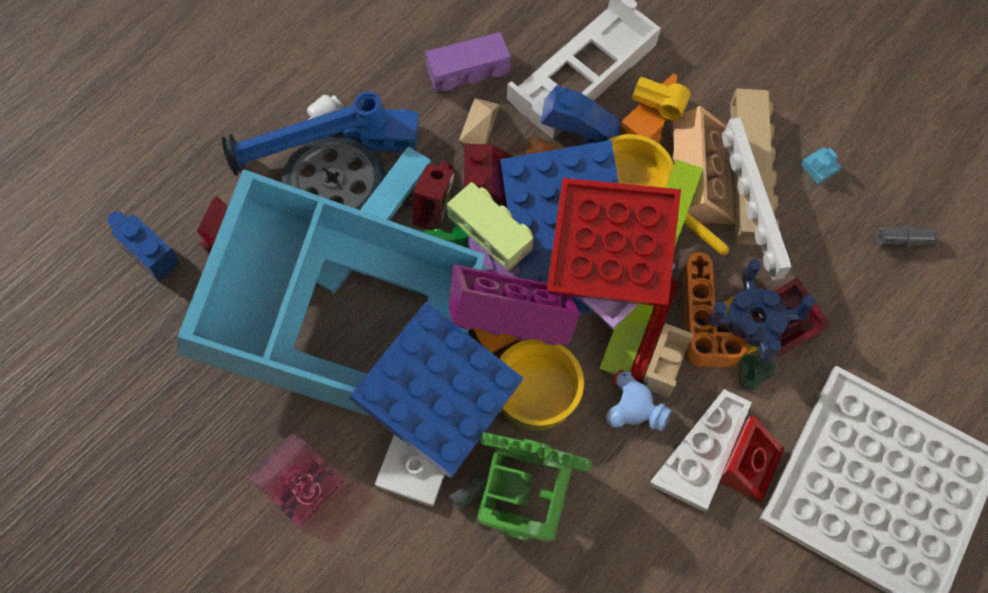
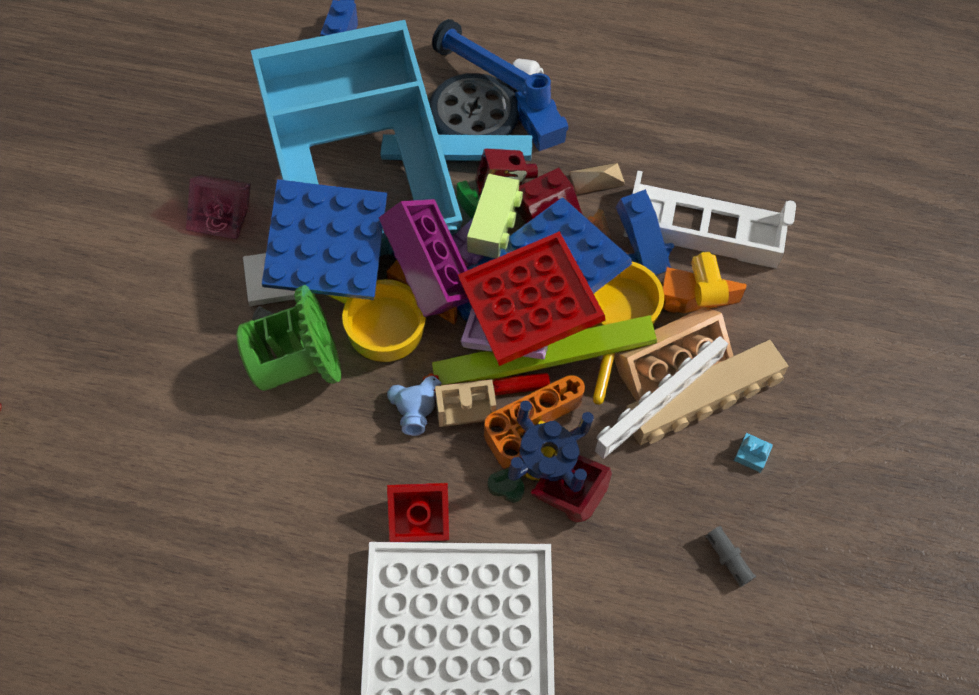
camera: 60 degrees right, 5 degrees down
(468, 62) = (644, 140): medium lavender brick -> none
(700, 459) = (380, 467): white wing -> none

